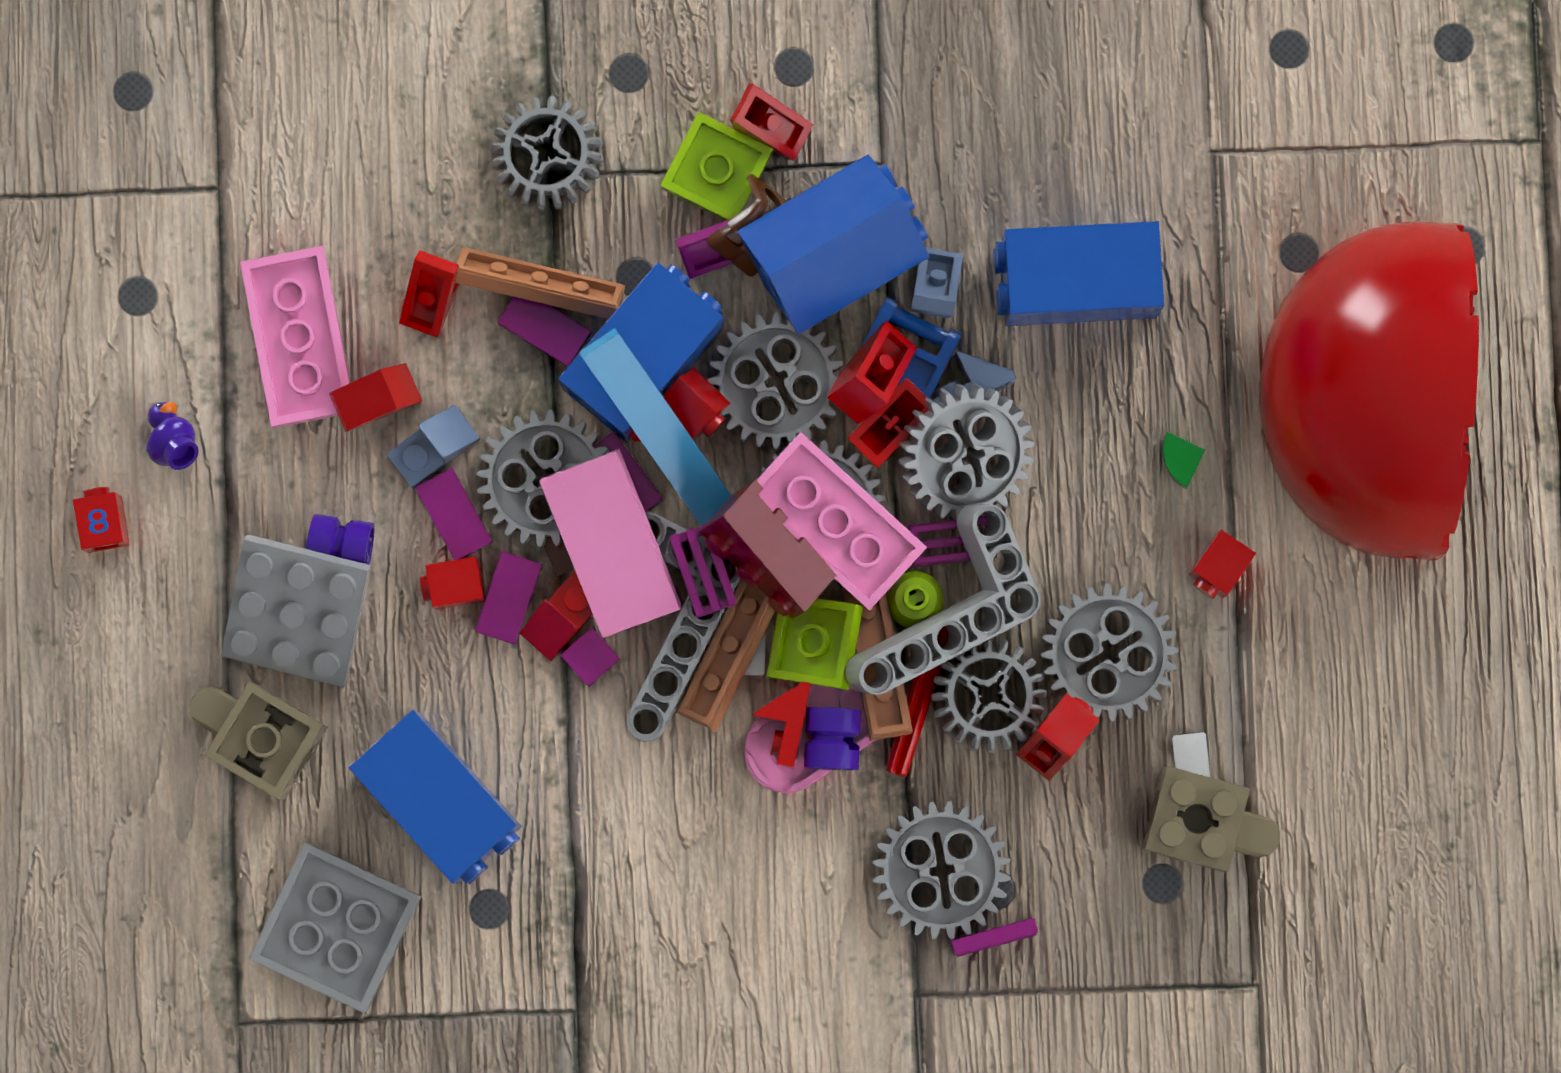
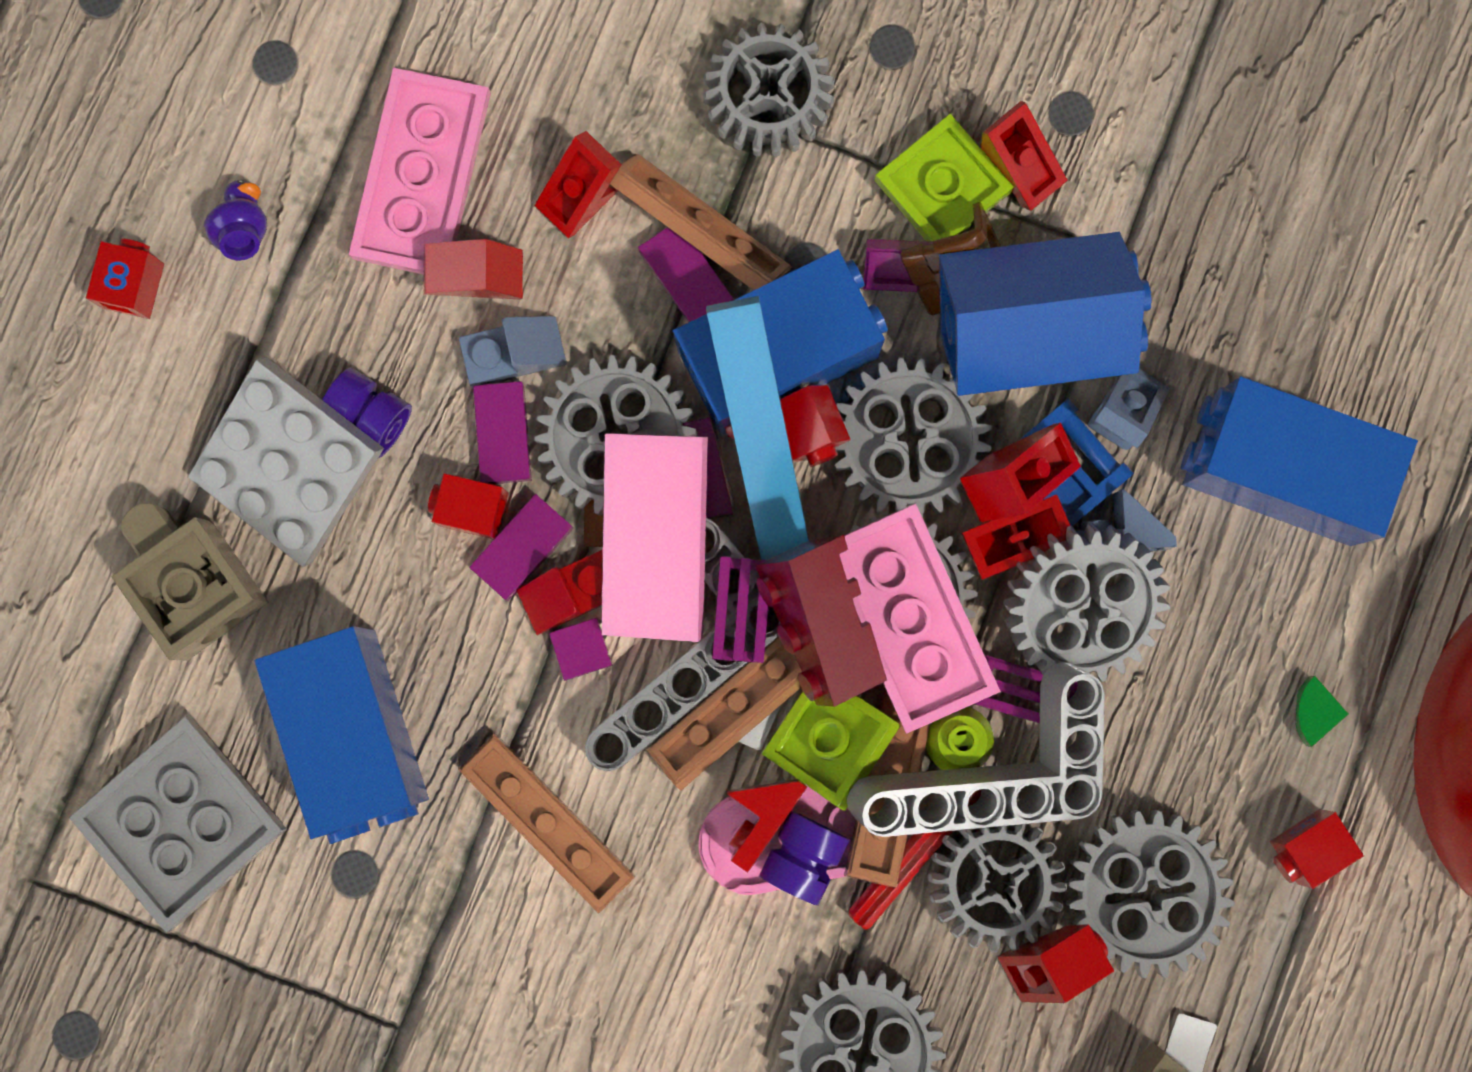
camera: 30 degrees right, 0 degrees up
(622, 803) = (547, 823): none -> nougat tile

